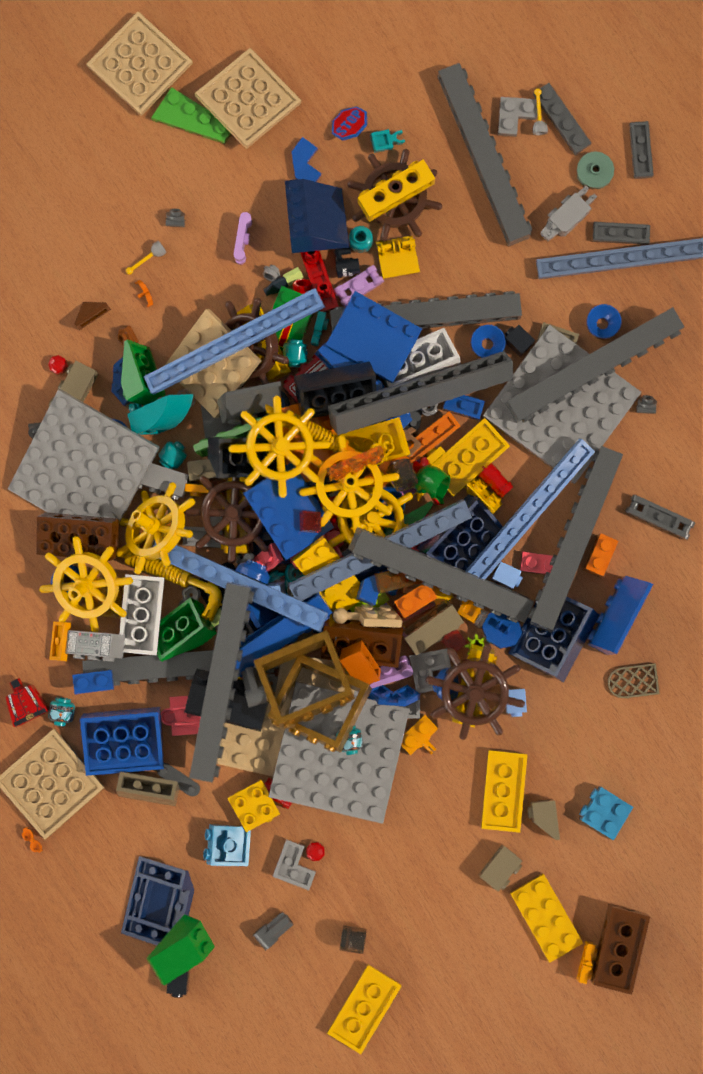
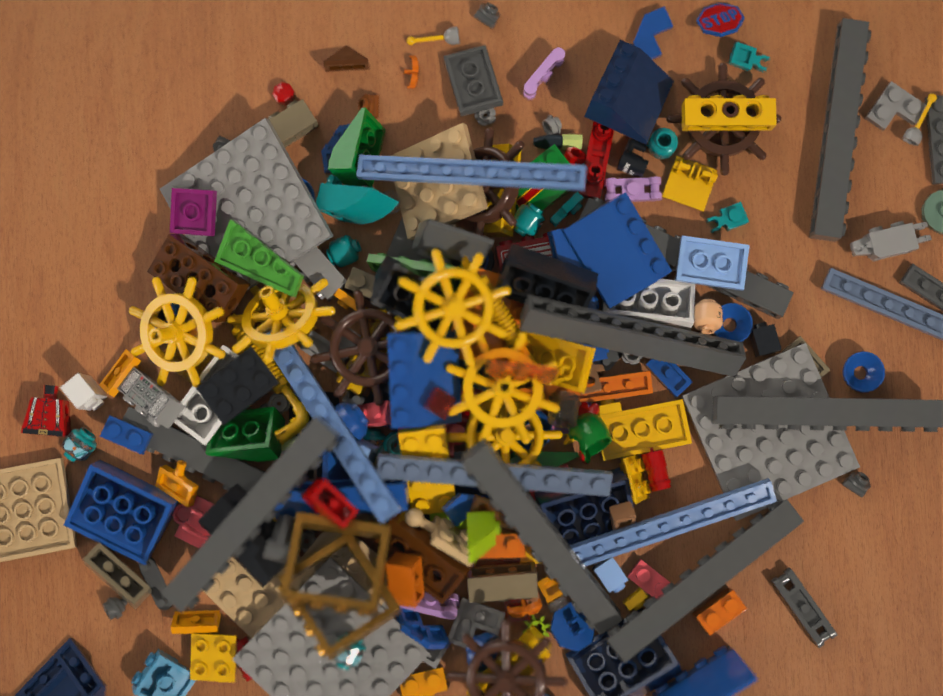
camera: 30 degrees right, 0 degrees up
(43, 670) = (84, 392): none -> white brick
(44, 490) = (193, 211): none -> magenta plate
(112, 498) = (254, 259): none -> bright green wing
(151, 697) = (176, 484): none -> light orange plate
(154, 597) = (237, 385): none -> black plate
(159, 814) = (114, 607): none -> dark grey plate
(193, 273) = (473, 80): none -> dark grey tile
(222, 294) = (484, 121): none -> light grey plate
(225, 788) = (195, 622): none -> light orange plate
(273, 639) = (329, 503): none -> red slope
(395, 598) = (481, 533): none -> lime slope
(442, 264) = (731, 217): none -> teal plate
(447, 306) = (712, 263): none -> light blue plate
(457, 640) = (531, 609): none -> orange piece
(467, 346) = (708, 316): none -> light nougat head
(490, 527) = (622, 515): none -> medium nougat slope
(535, 583) = (635, 599): none -> yellow plate

